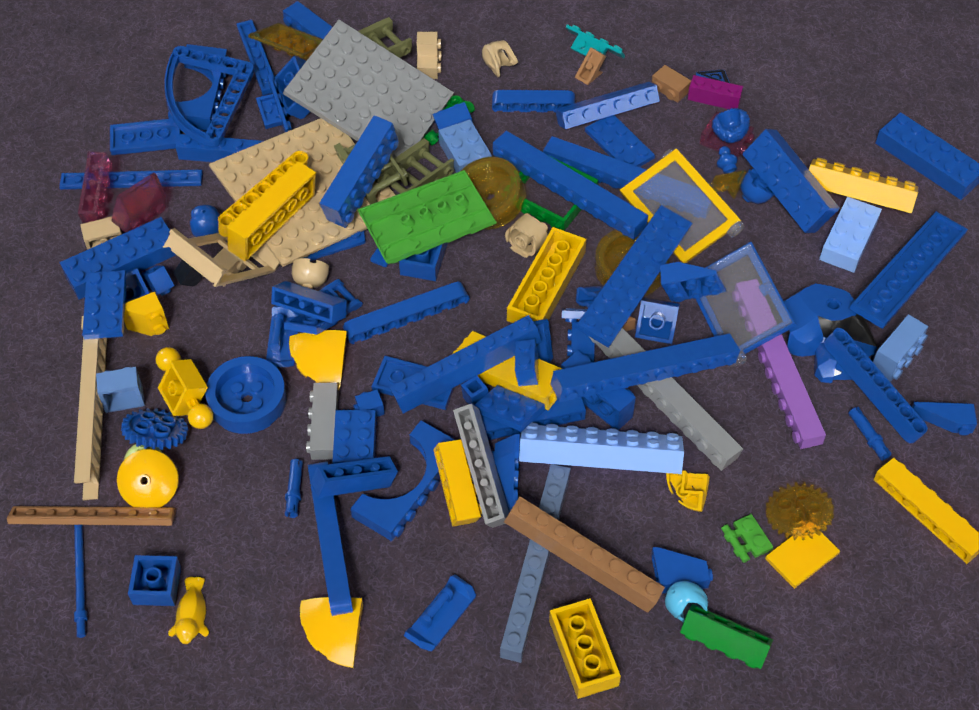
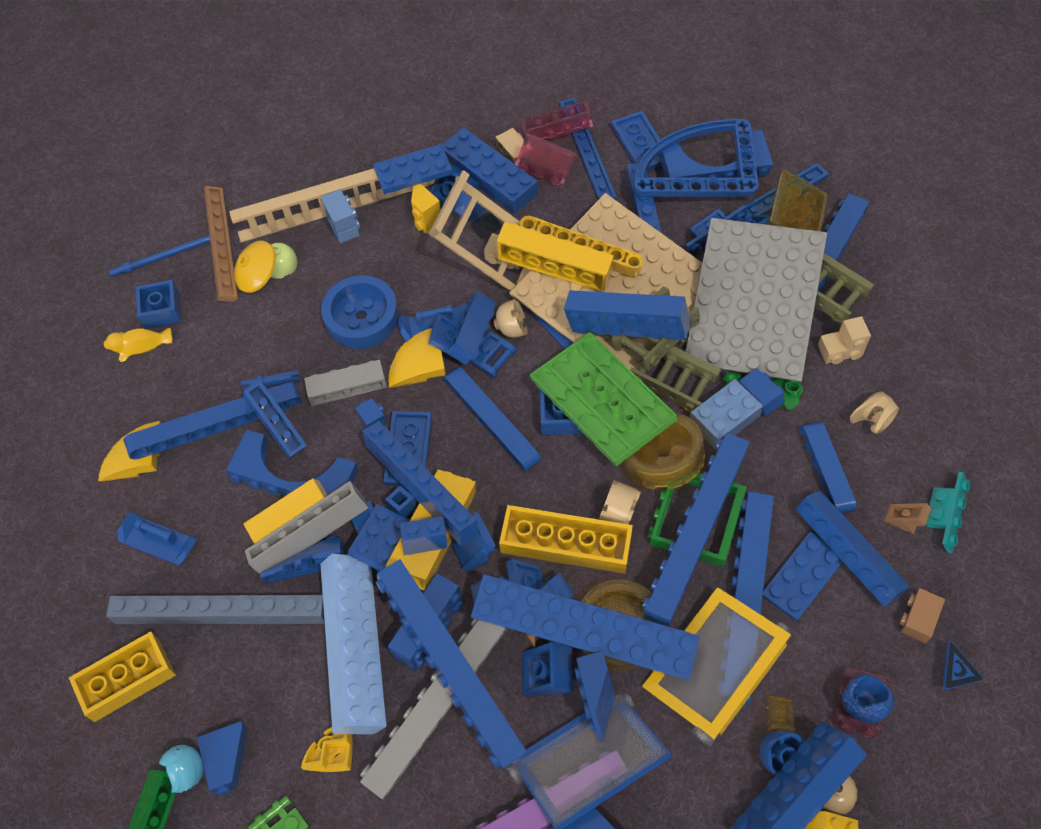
camera: 80 degrees right, 5 degrees up
(154, 429) = (289, 251): blue gear -> none
(183, 388) = (351, 258): yellow brick -> none
(204, 220) = (552, 213): blue piece -> none
(354, 435) = (326, 414): blue brick -> none
(584, 554) = (213, 651): medium nougat brick -> none
(715, 92) = (928, 673): magenta brick -> none
(727, 161) = (816, 711): blue animal -> none

